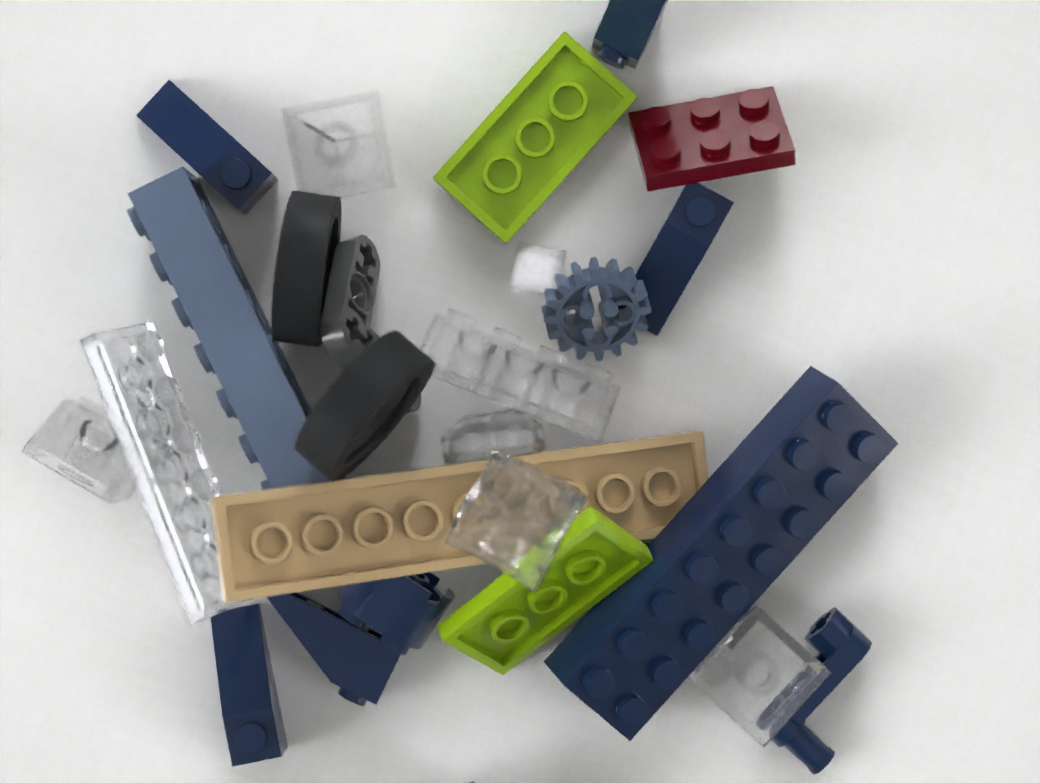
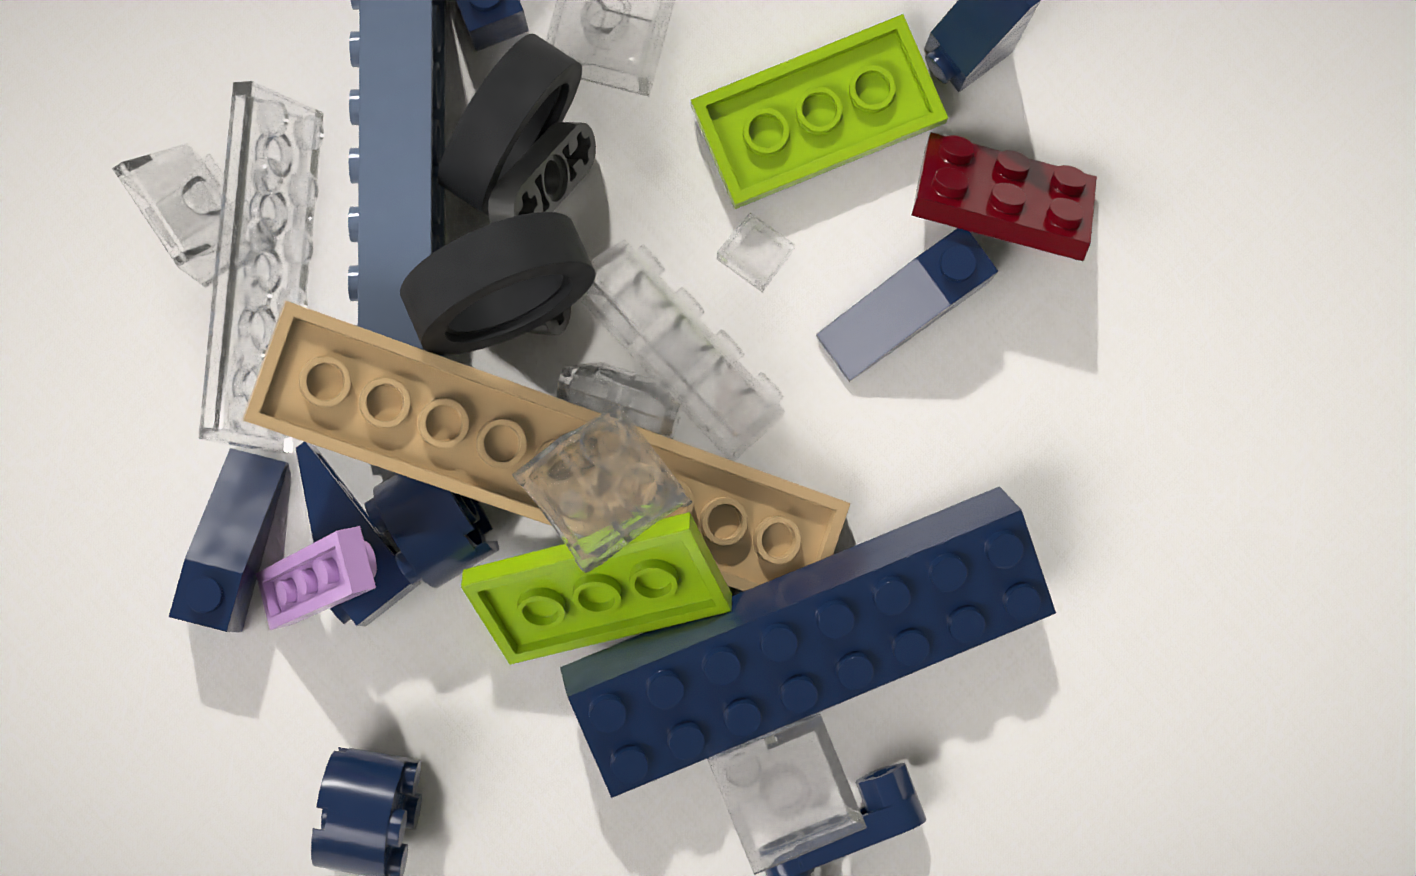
camera: 20 degrees right, 5 degrees down
(333, 687) = (317, 577): none -> lavender plate
(615, 289) = (827, 305): sand blue gear -> none

